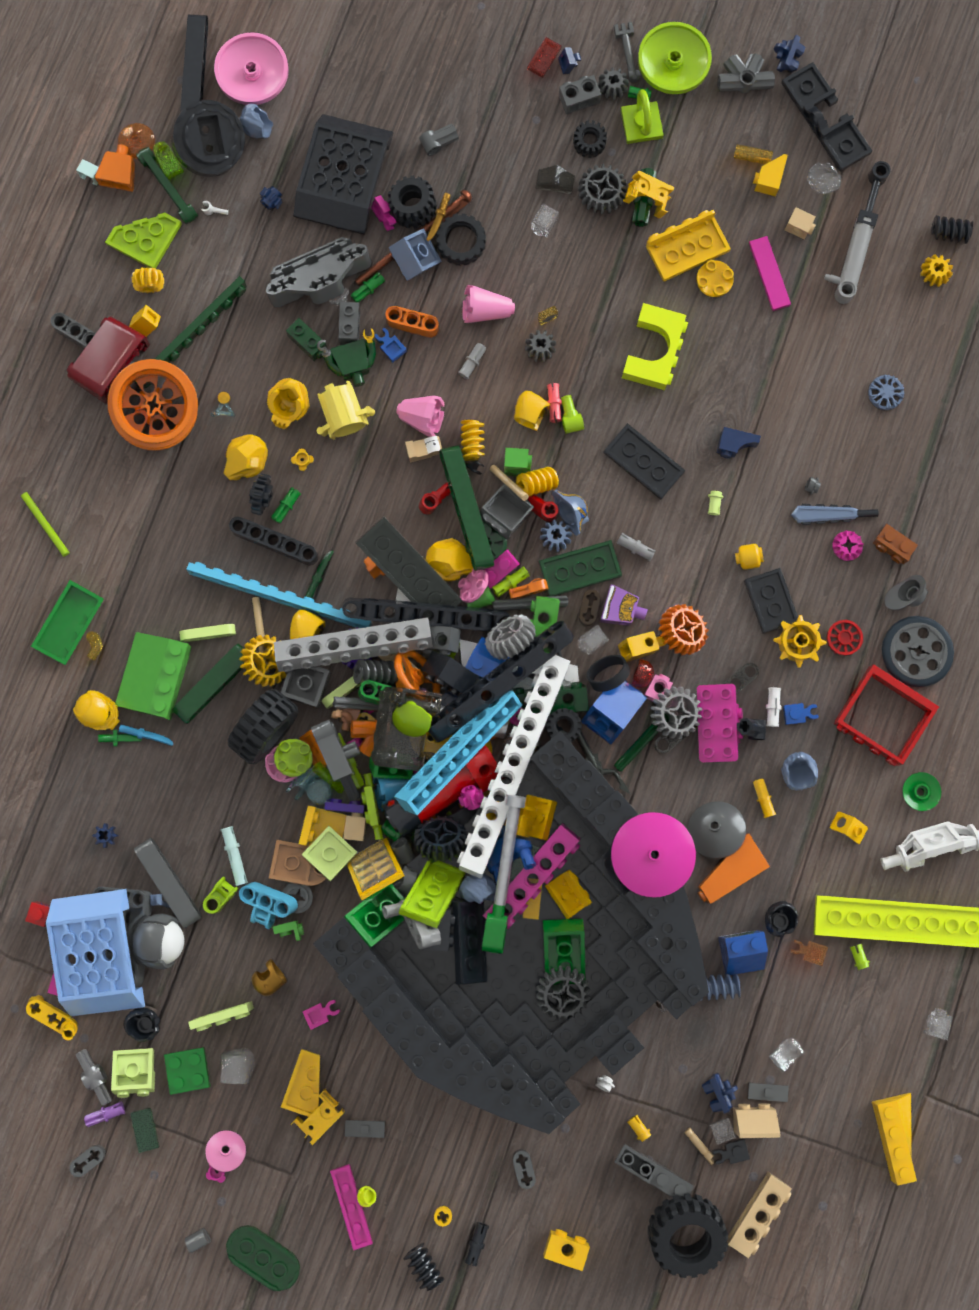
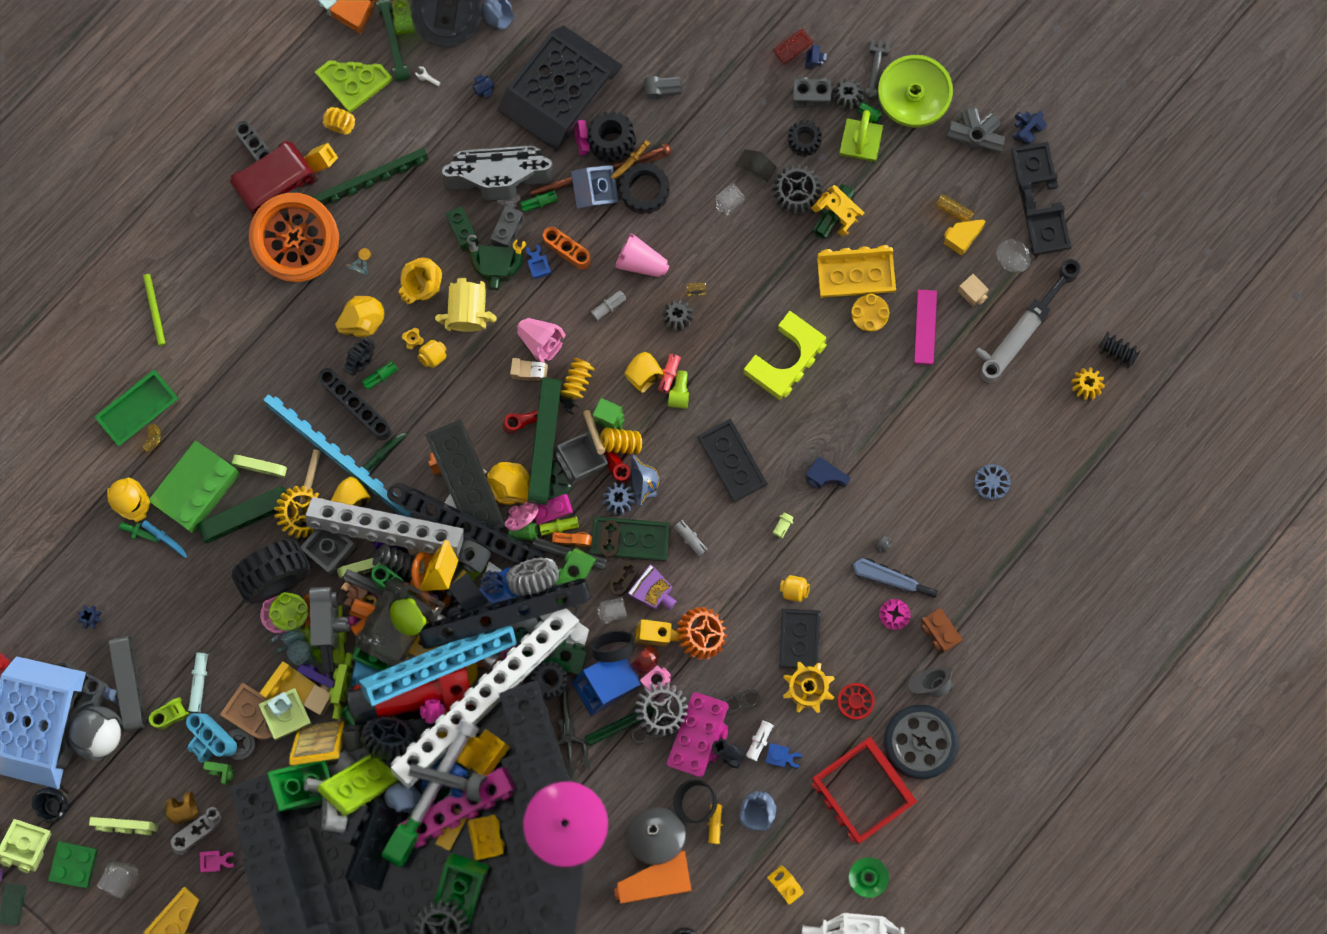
camera: 30 degrees right, 5 degrees down
(283, 1000) = (185, 835): none -> light grey beam
(322, 847) = (279, 704): none -> light aqua piece
(327, 466) = (432, 353): none -> yellow head
(423, 663) = (440, 569): none -> yellow slope
(477, 657) = (492, 582): none -> dark blue gear
(541, 853) = (470, 786): none -> dark grey piece
(559, 577) = (605, 538): none -> dark brown beam
(721, 785) = (678, 797): none -> black tyre

